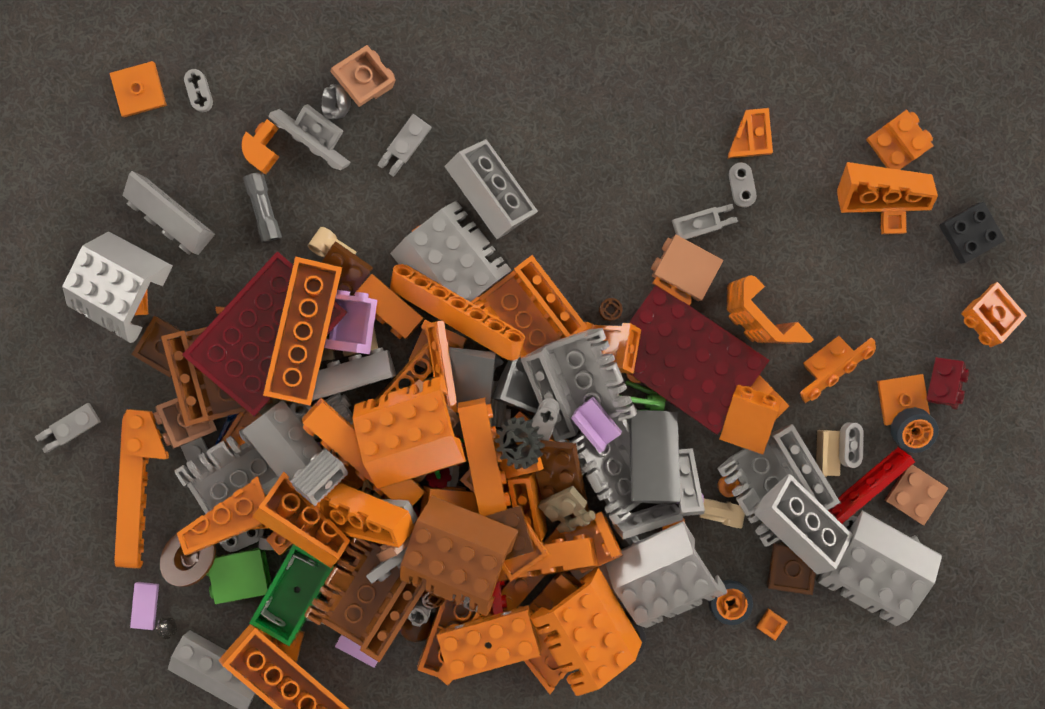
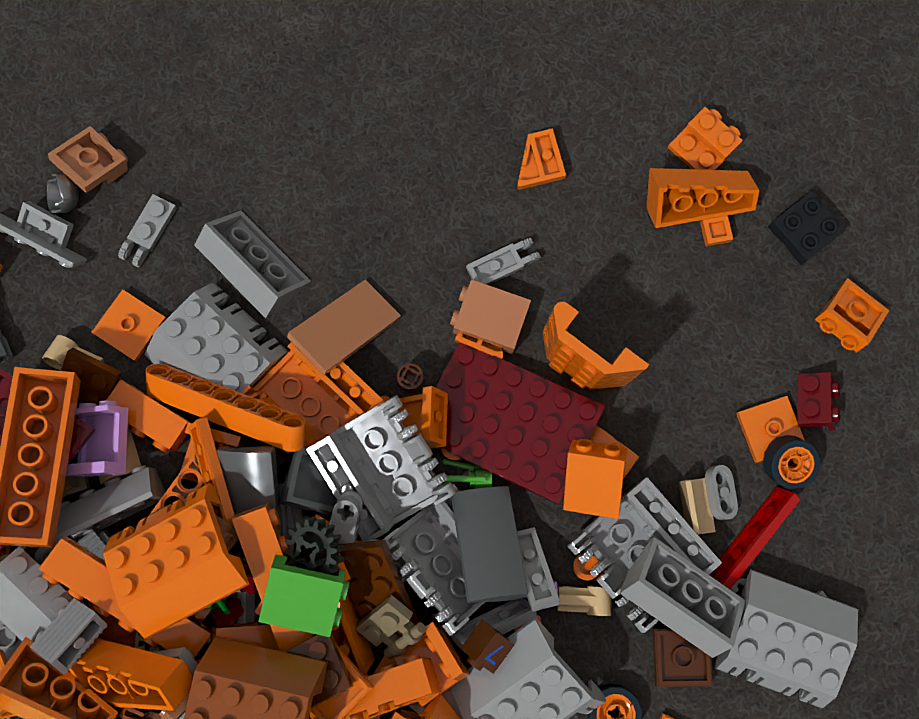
camera: 15 degrees left, 10 degrees down
(380, 226) = (128, 325): none -> orange plate
(506, 479) = (303, 598): none -> bright green panel
(563, 258) = (343, 327): none -> nougat tile
(595, 424) = (410, 514): lavender panel -> none
(641, 537) = (486, 647): none -> reddish brown brick
(742, 184) = (539, 215): light grey plate -> none
(832, 363) = (679, 401): orange bracket -> none
(916, 494) = (810, 539): nougat plate -> none

